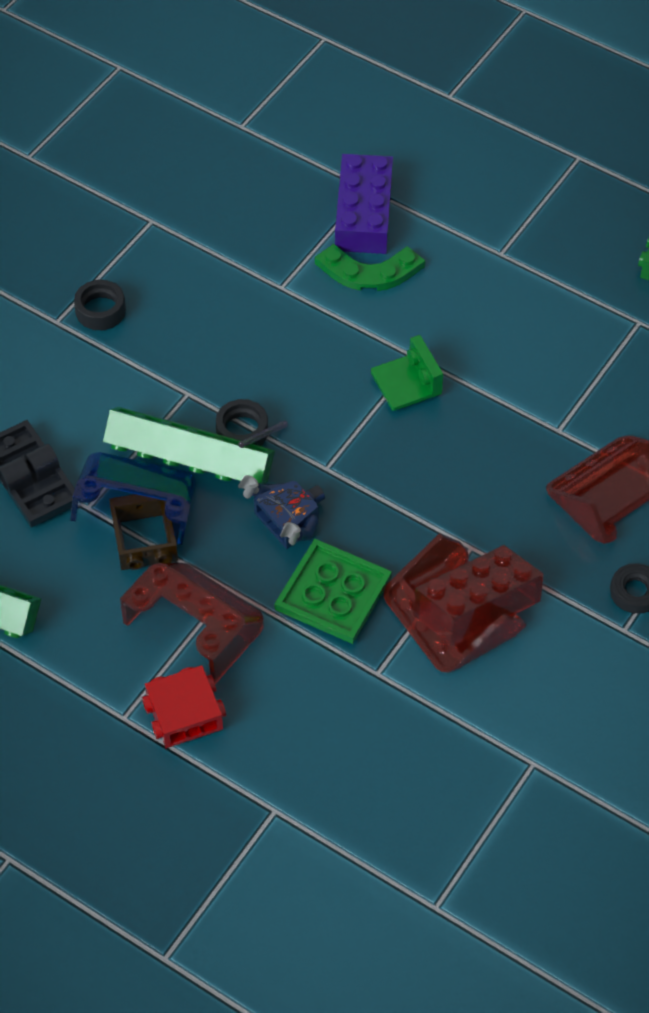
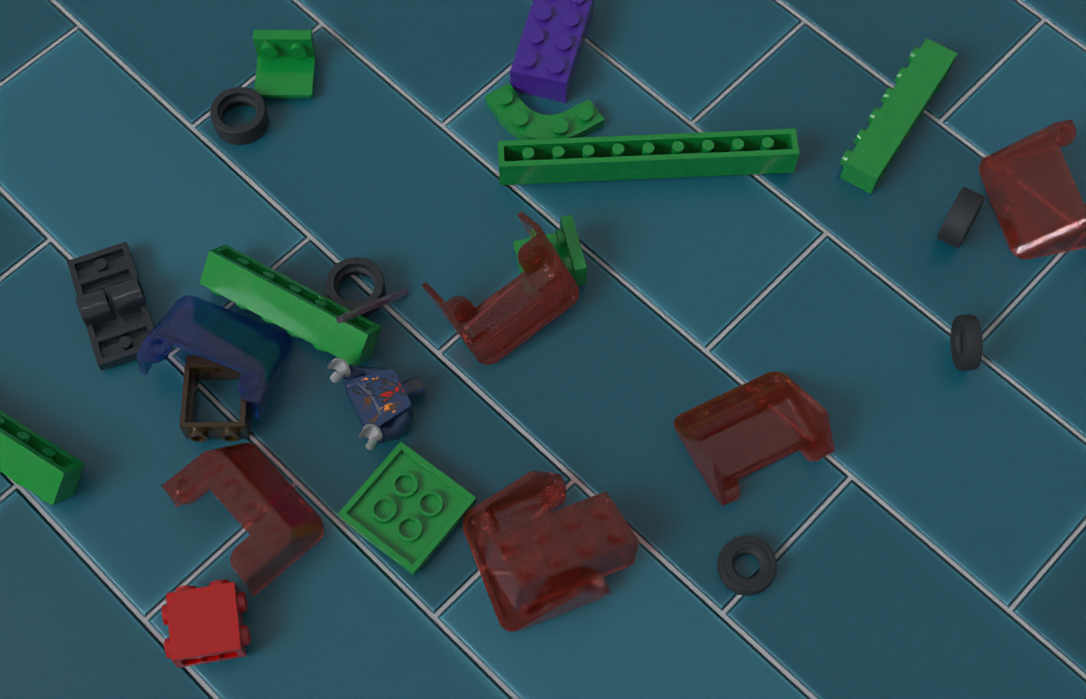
camera: 10 degrees right, 10 degrees up
(130, 255) = (284, 63): none -> green bracket
(392, 417) = (518, 307): none -> clear red windscreen
(470, 282) = (647, 156): none -> green brick

